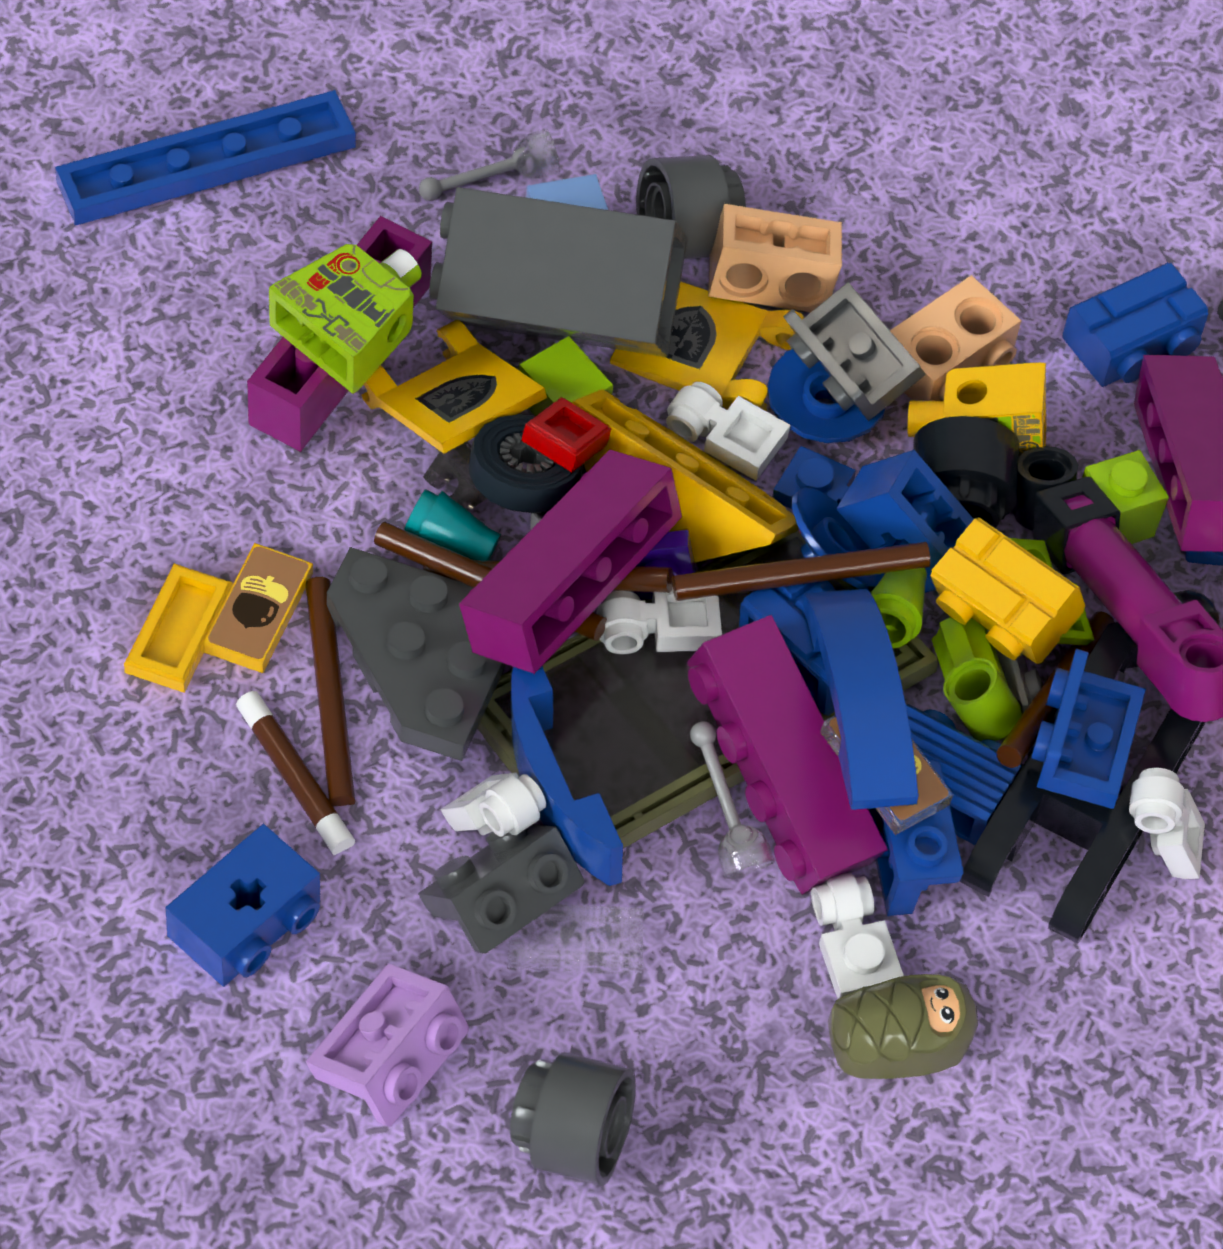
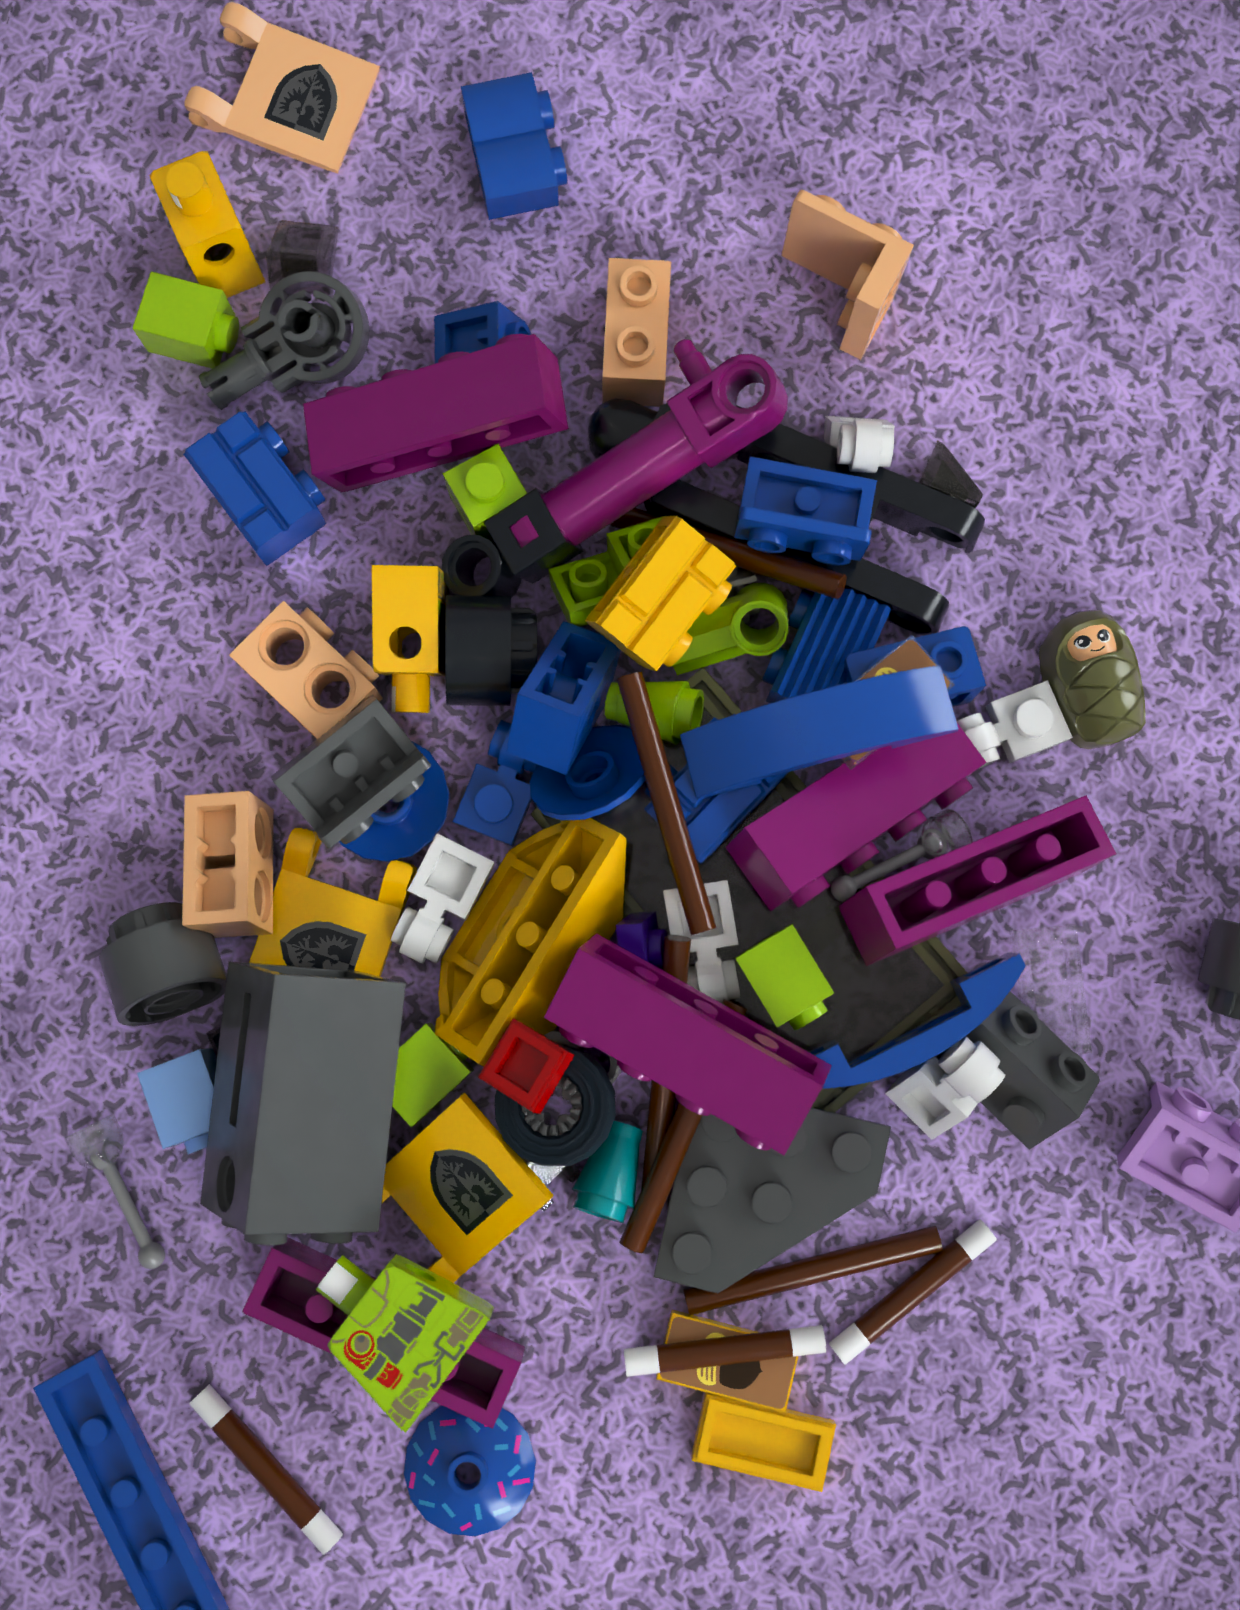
camera: 95 degrees left, 25 degrees up
(192, 418) = (500, 1454): none -> blue dish
(230, 251) = (266, 1469): none -> reddish brown bar
(252, 875) = (1123, 1340): blue brick -> none
(272, 594) = (724, 1350): none -> reddish brown bar
(622, 674) = (786, 978): none -> lime brick
(700, 842) = (975, 880): none -> magenta brick
(1127, 903) = (947, 476): none -> clear smoke slope

